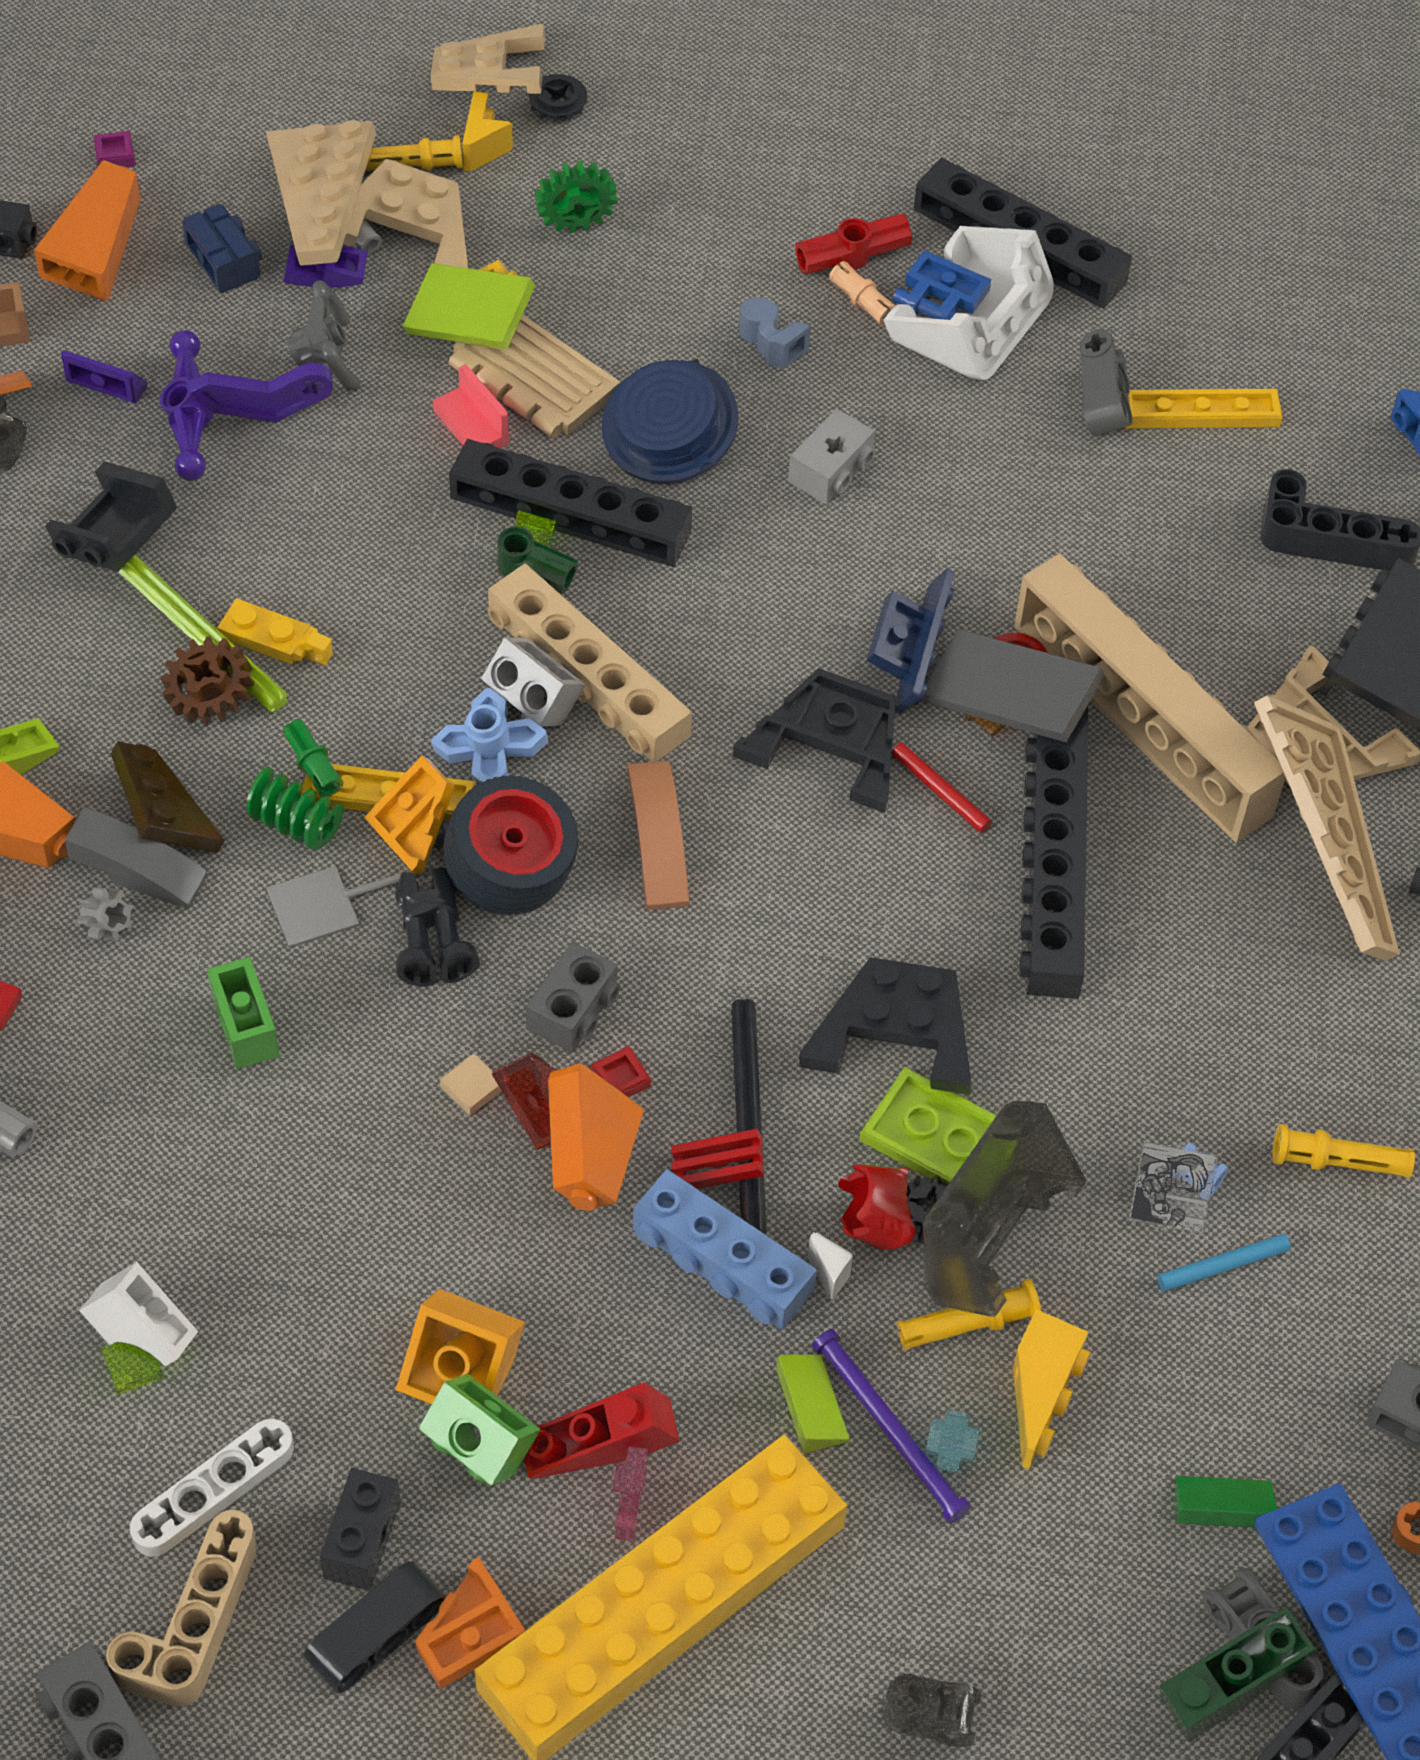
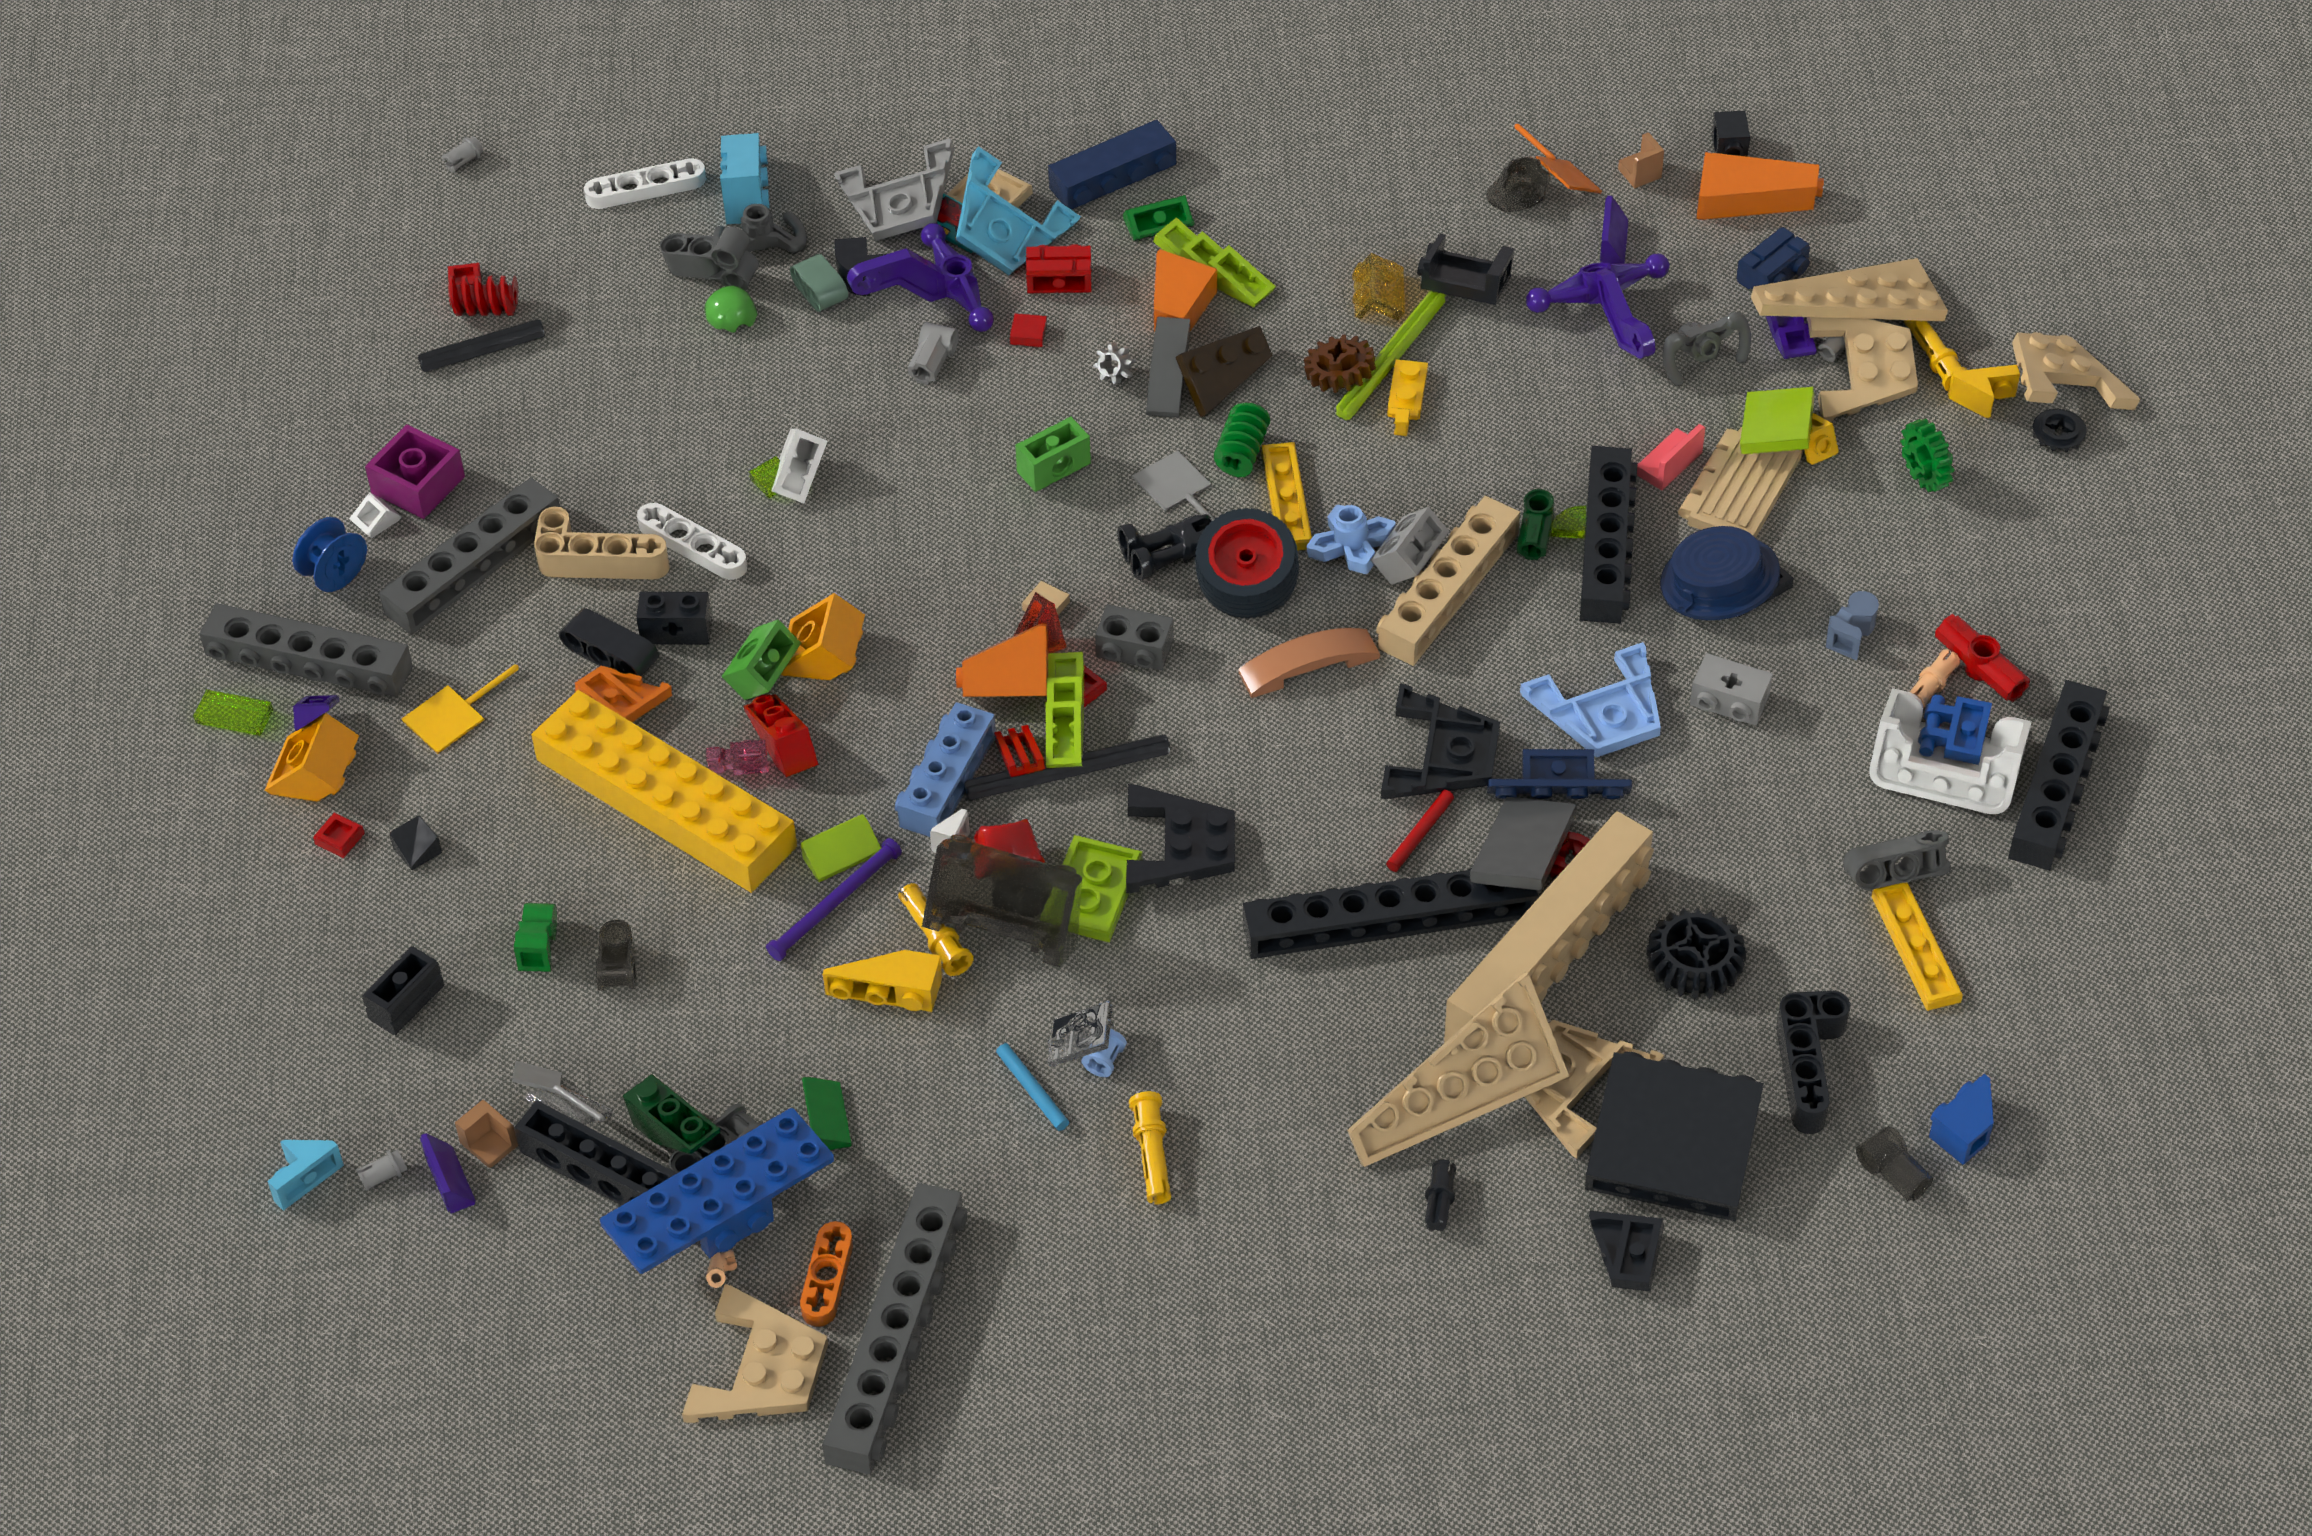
camera: 80 degrees right, 5 degrees down
(90, 617) = (1378, 287): none -> clear yellow bracket
(115, 148) = (1853, 178): magenta tile -> none
(312, 758) = (1288, 436): green axle -> none
(413, 812) = (1272, 498): light orange wing -> none
(684, 1096) = (1065, 710): none -> lime slope
(832, 567) = (1607, 716): none -> light blue wing
(952, 1440) = (825, 931): clear light blue gear -> none
(1181, 583) = (1702, 945): none -> black gear

